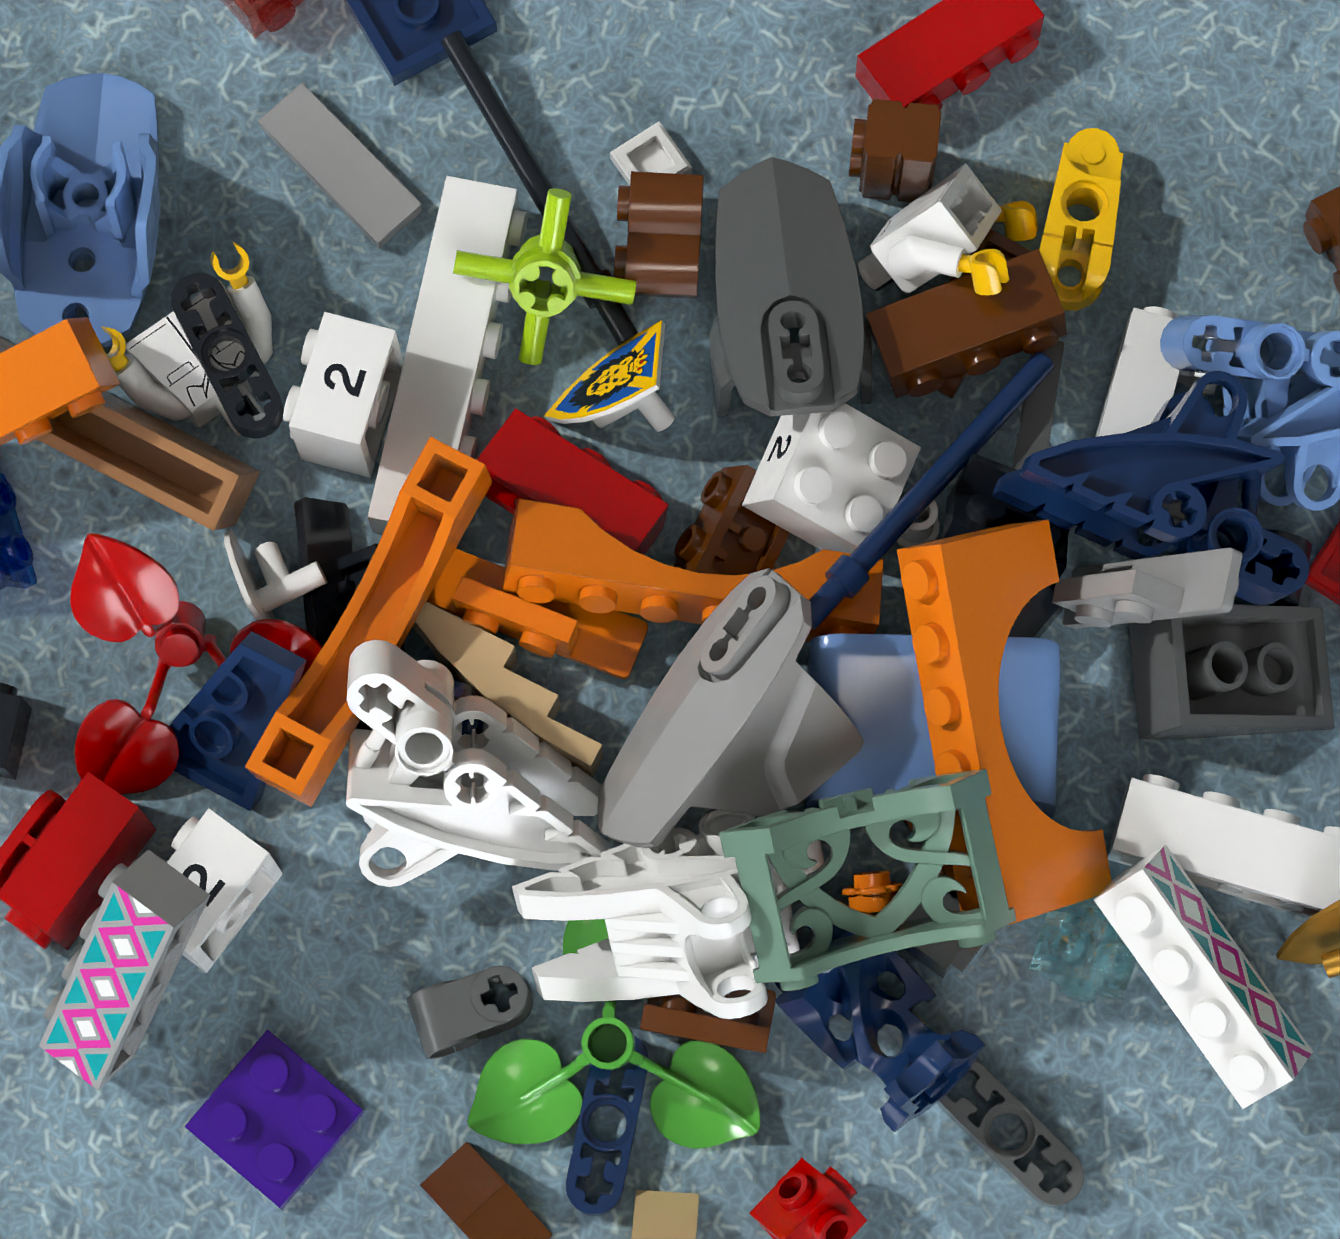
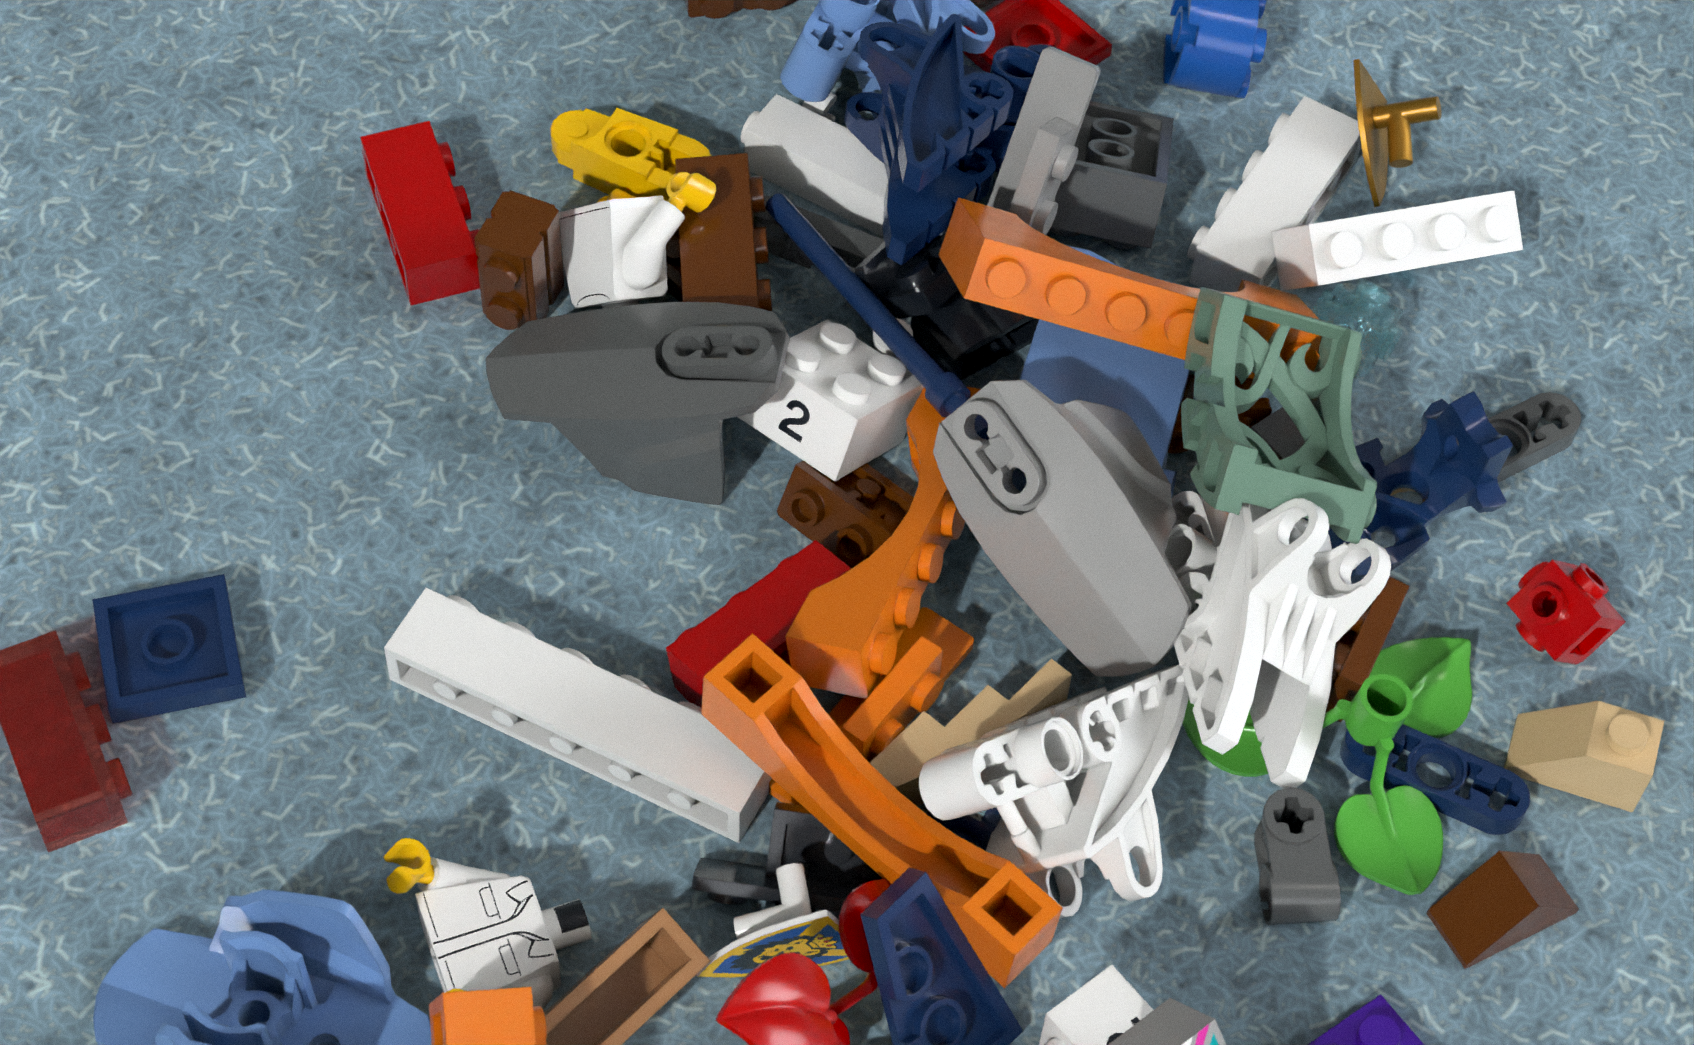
camera: 80 degrees left, 20 degrees down
(223, 311) = (458, 885): black beam -> none
(340, 165) = (314, 769): light grey tile -> none
(344, 393) = (595, 799): white brick -> none
(530, 171) = (548, 564): black bar -> none
(540, 297) = (532, 583): lime bar -> none
(619, 385) = (664, 560): shield -> none
(650, 152) = (431, 489): white tile -> none
(662, 233) = (520, 484): reddish brown brick -> none

